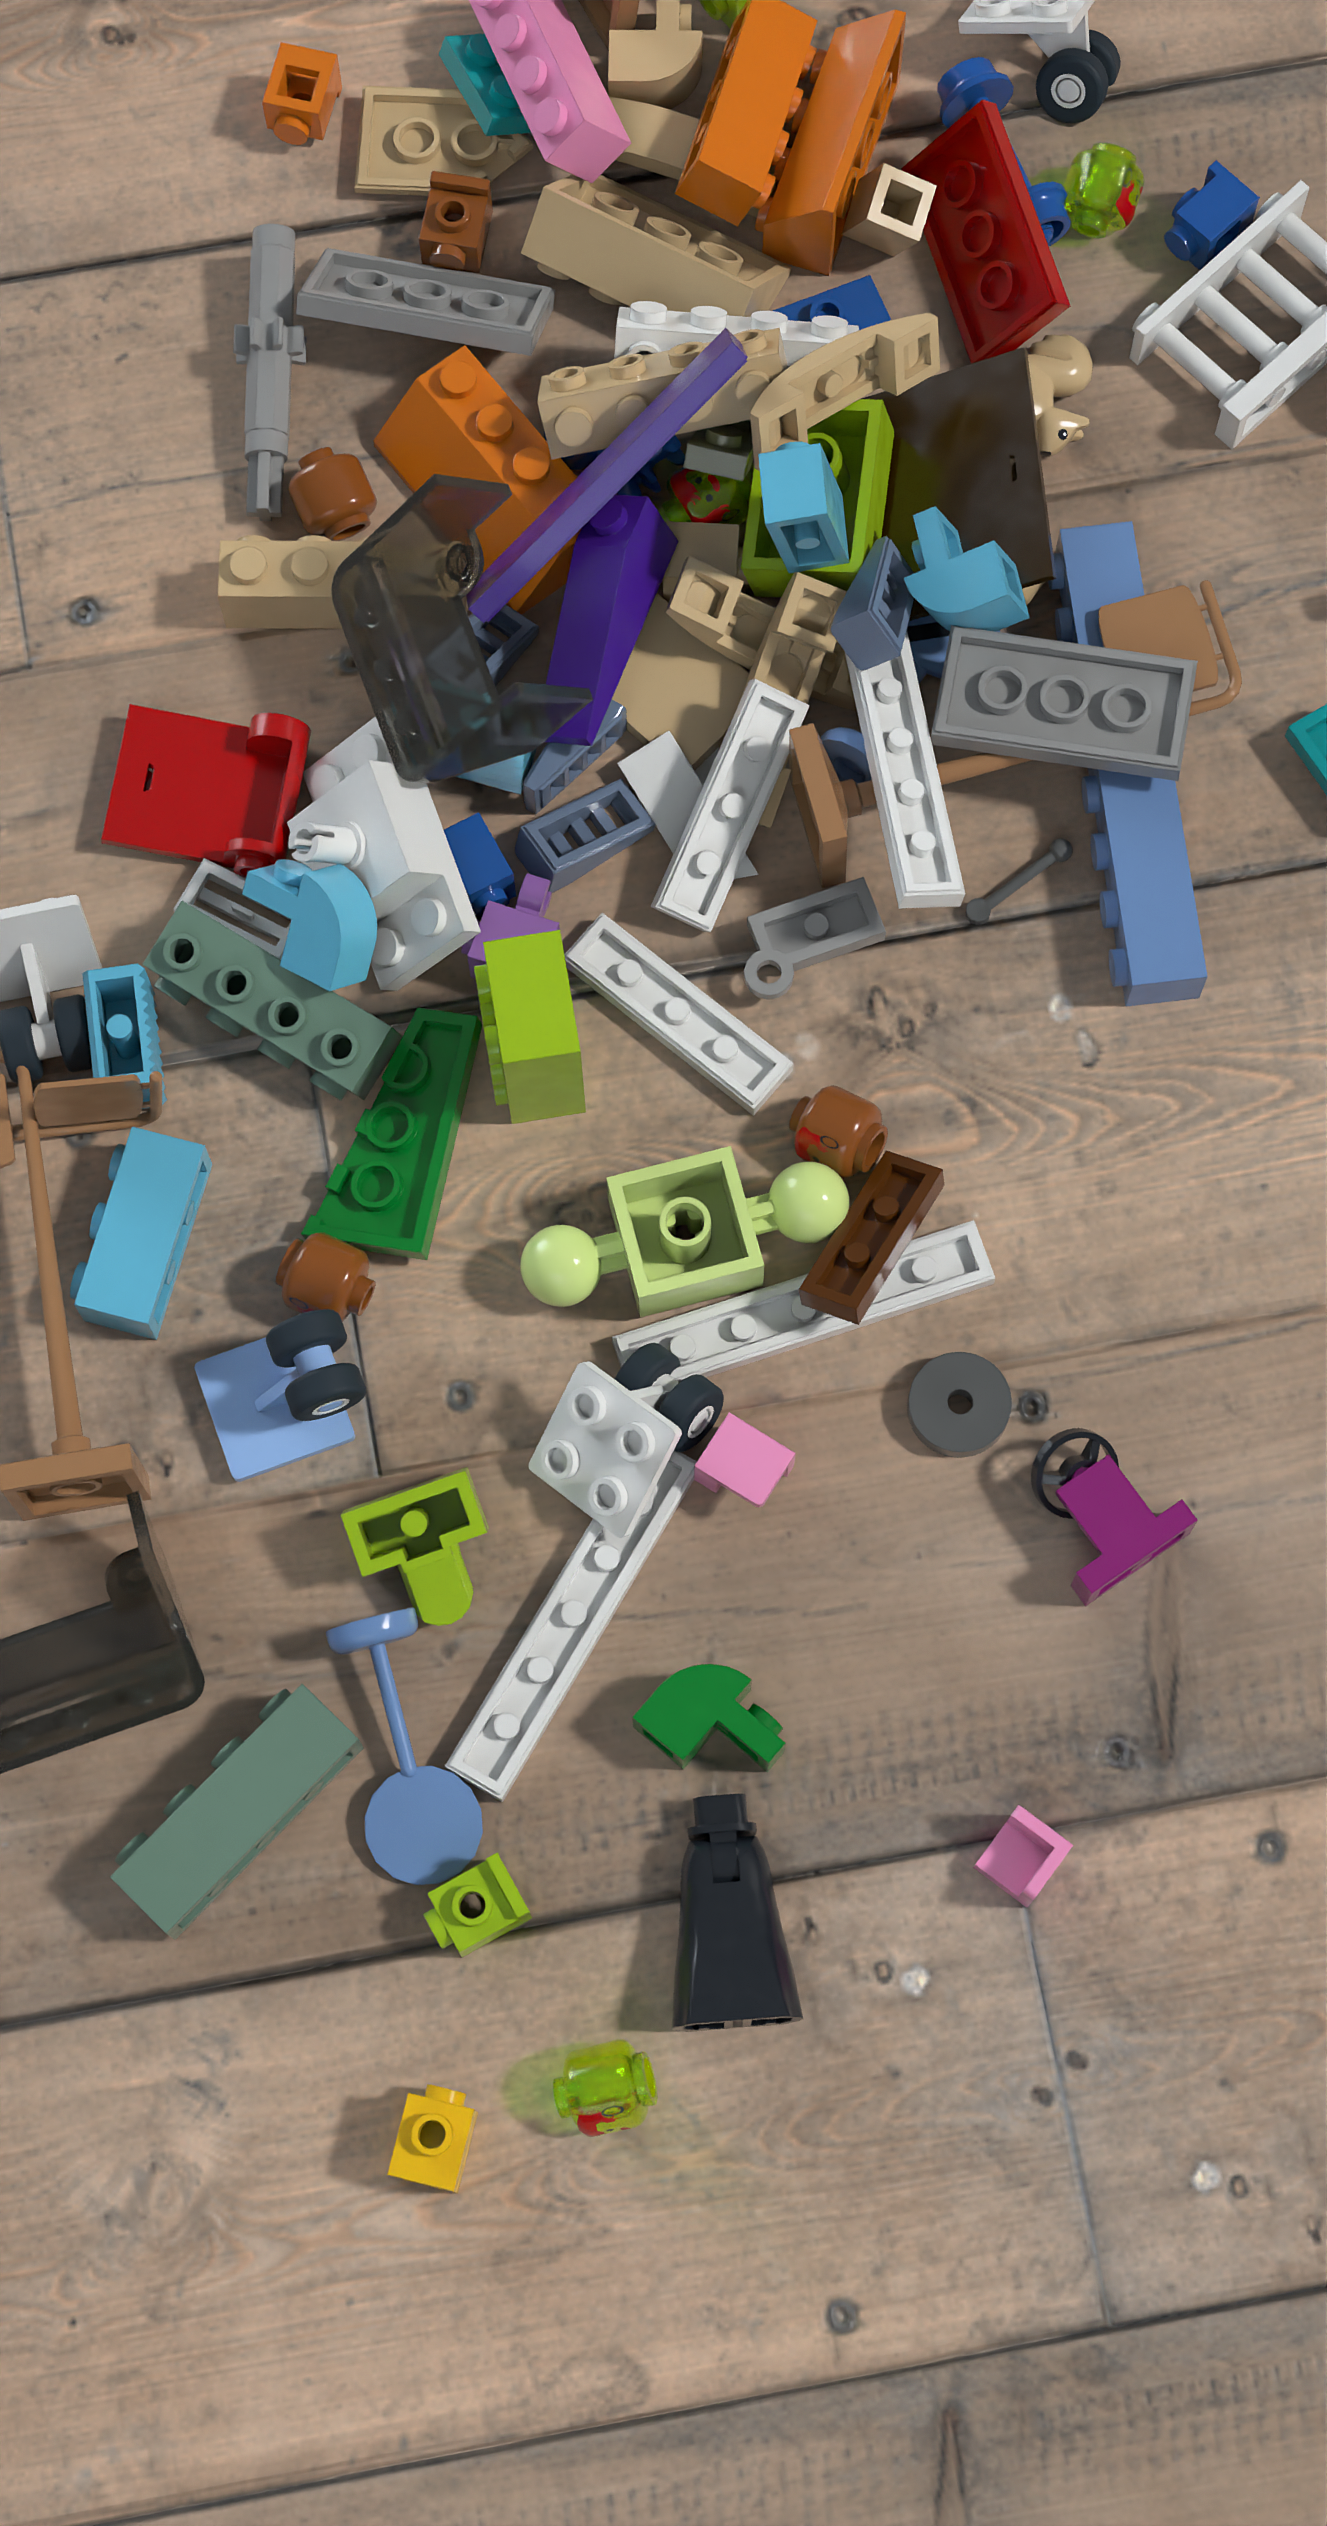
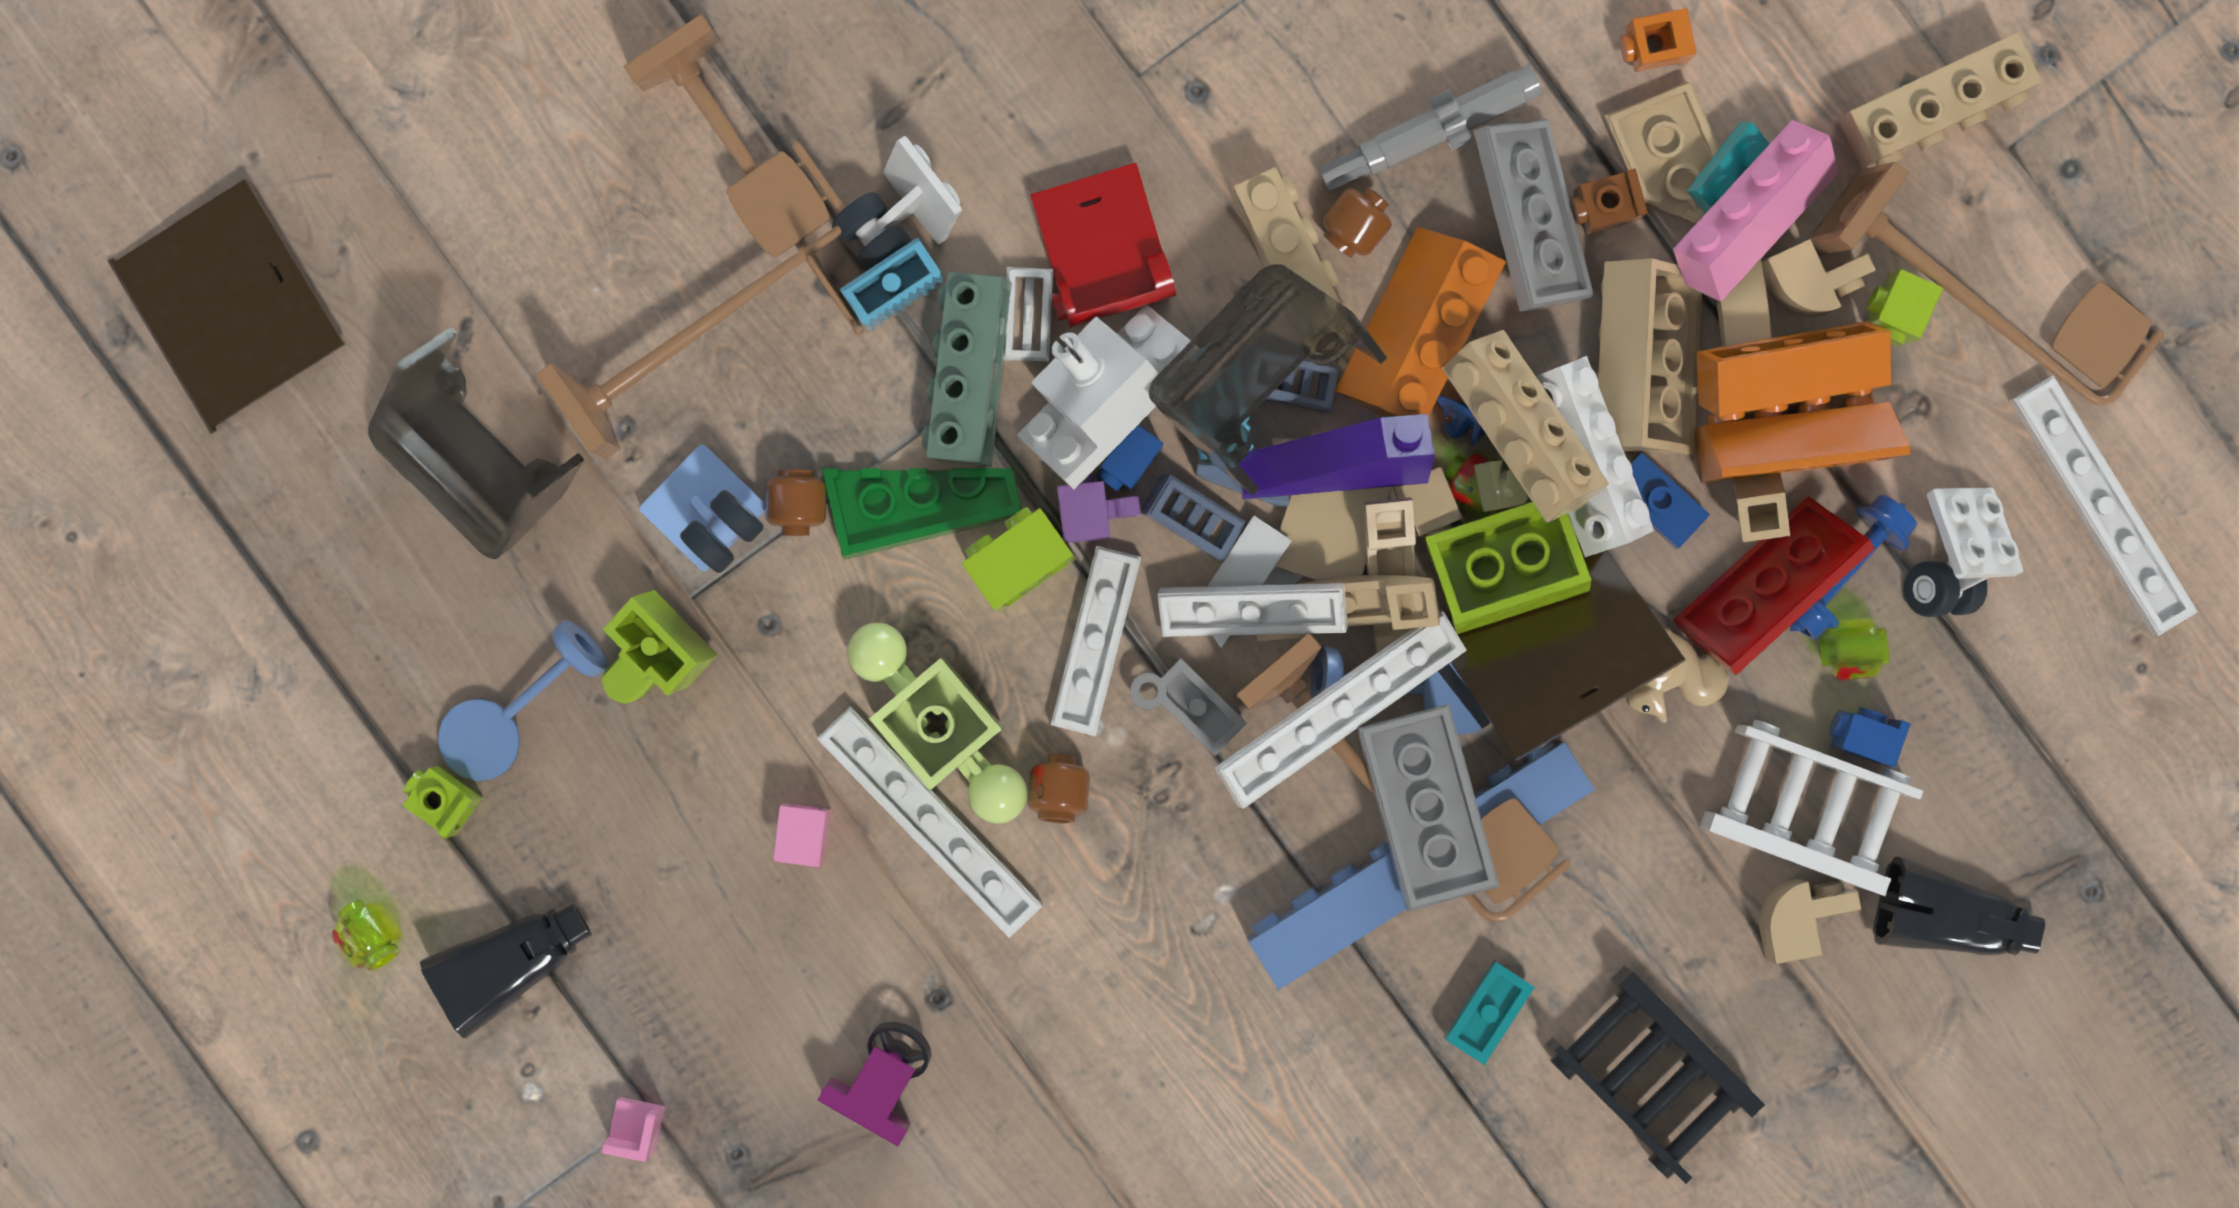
camera: 65 degrees right, 15 degrees up
(141, 1232) = (770, 363): medium azure brick -> none
(236, 1810) = (424, 622): sand green brick -> none
(330, 920) = (1032, 383): medium azure brick -> none
(433, 2139) = (284, 844): yellow brick -> none
(562, 1640) = (657, 769): white tile -> none
(606, 475) = (1439, 420): dark purple tile -> none
(619, 1433) = (771, 736): white plate -> none
(697, 1704) = (634, 879): green brick -> none
(803, 507) = (1472, 568): medium azure brick -> none
(842, 372) = (1624, 568): tan slope -> none
(871, 1237) = (992, 847): reddish brown plate -> none
(875, 608) = (1434, 648): sand blue slope -> none
(959, 1433) = (908, 973): dark grey piece -> none
(962, 588) = (1476, 699): medium azure brick -> none
(979, 909) = (1334, 844): dark grey hinge -> none

